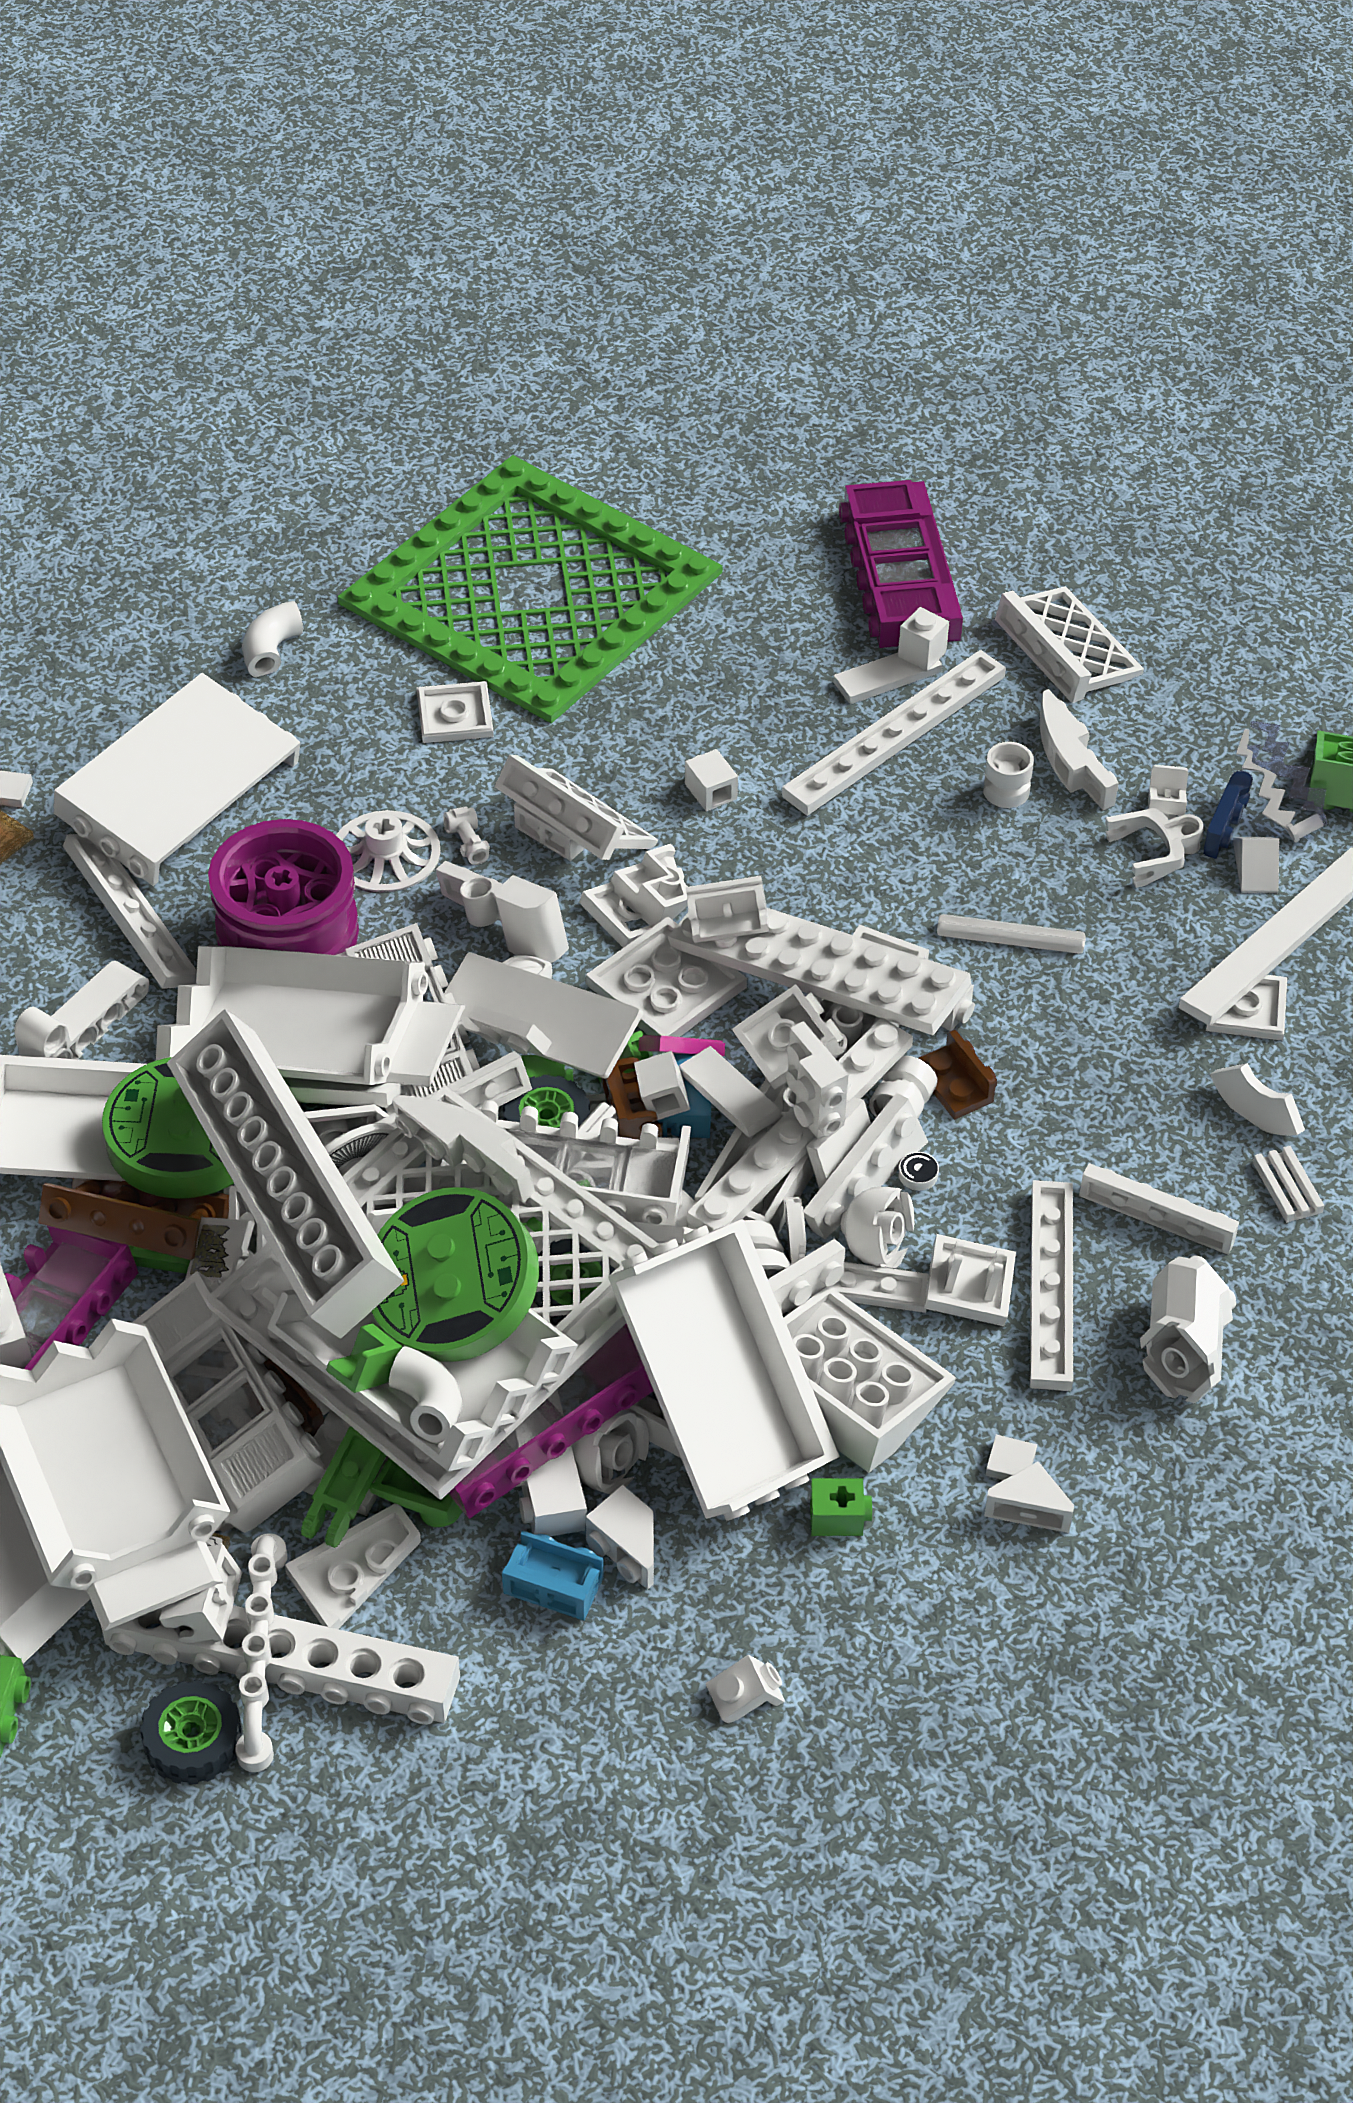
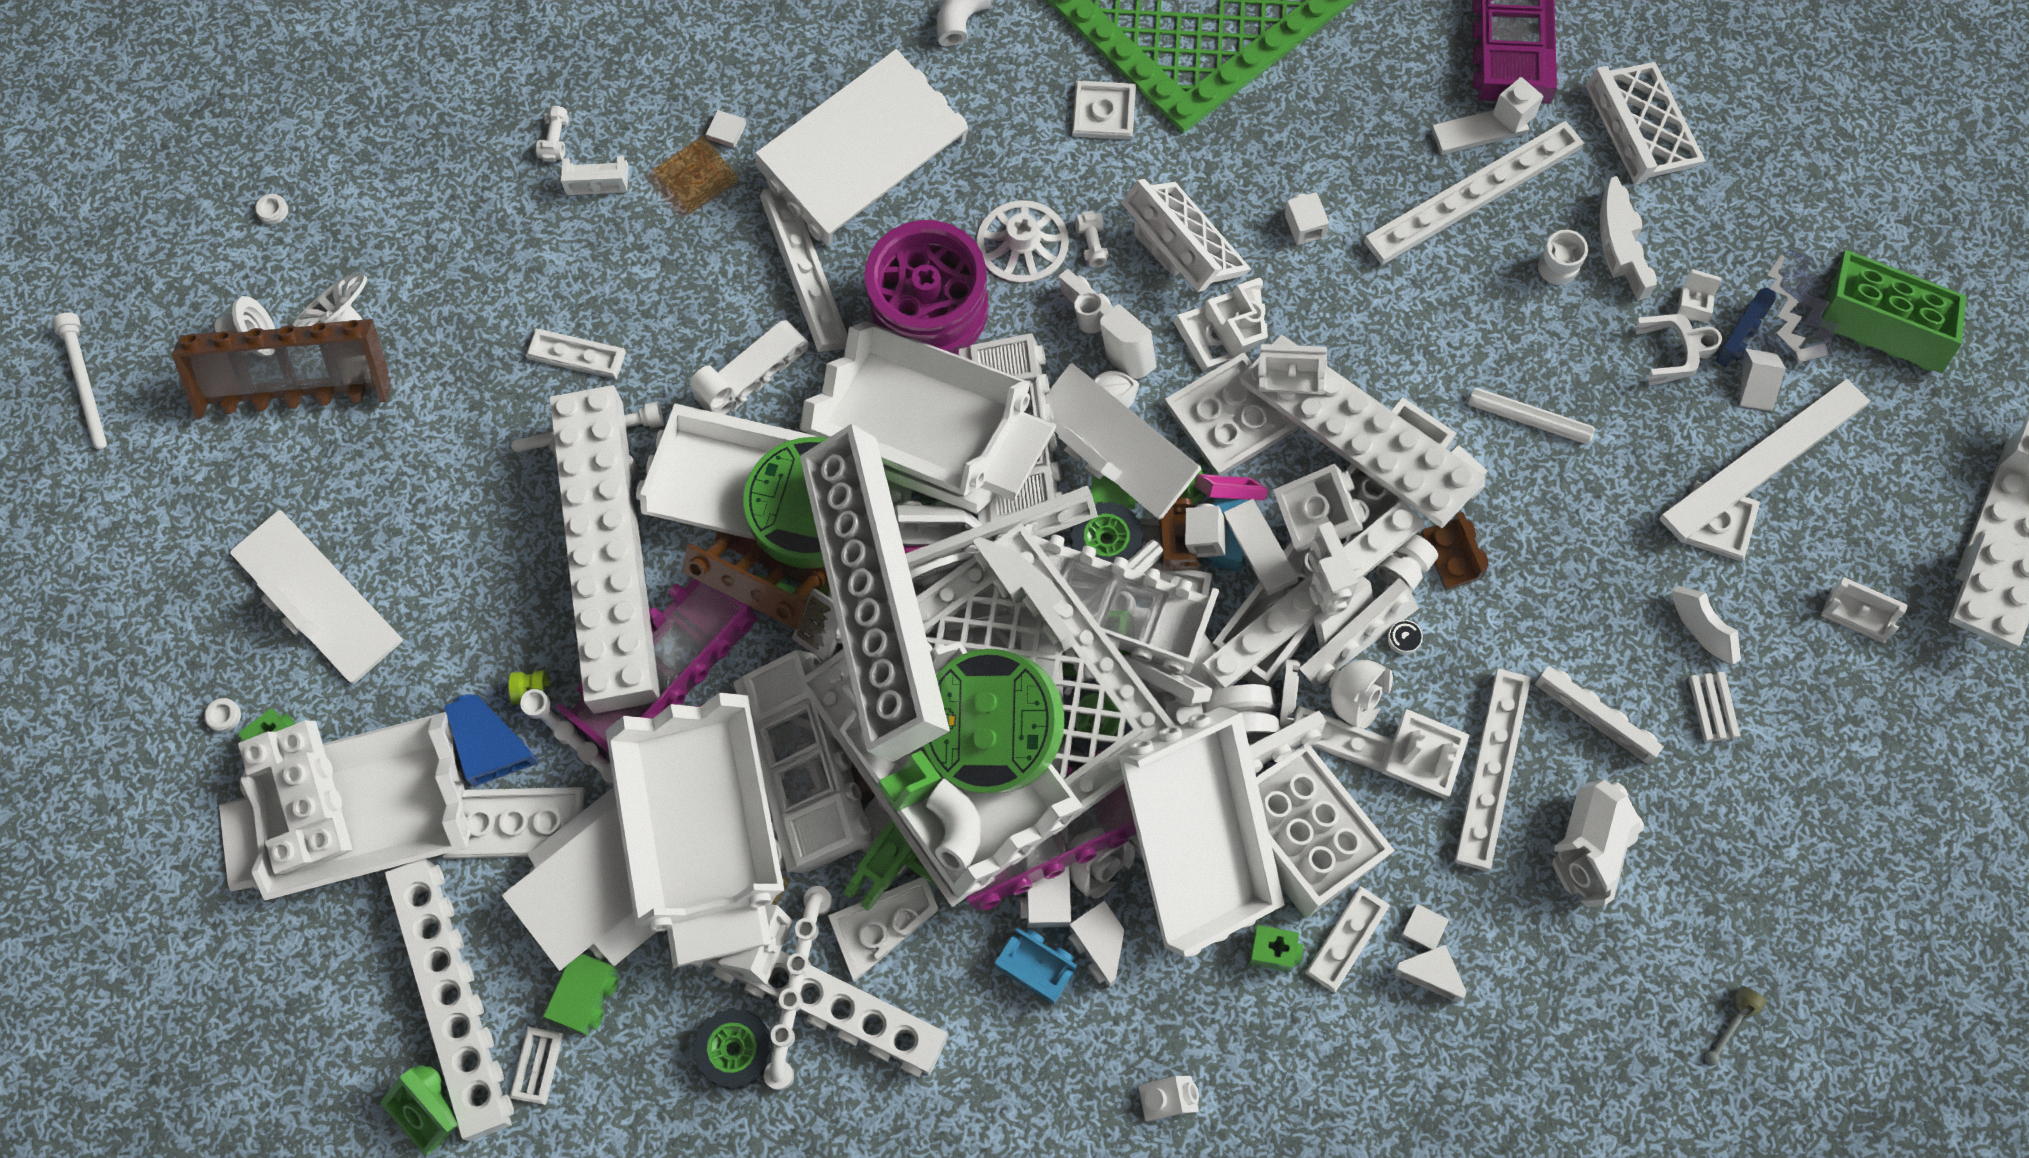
camera: 15 degrees right, 20 degrees up
(922, 1488) = (1347, 939): none -> white tile

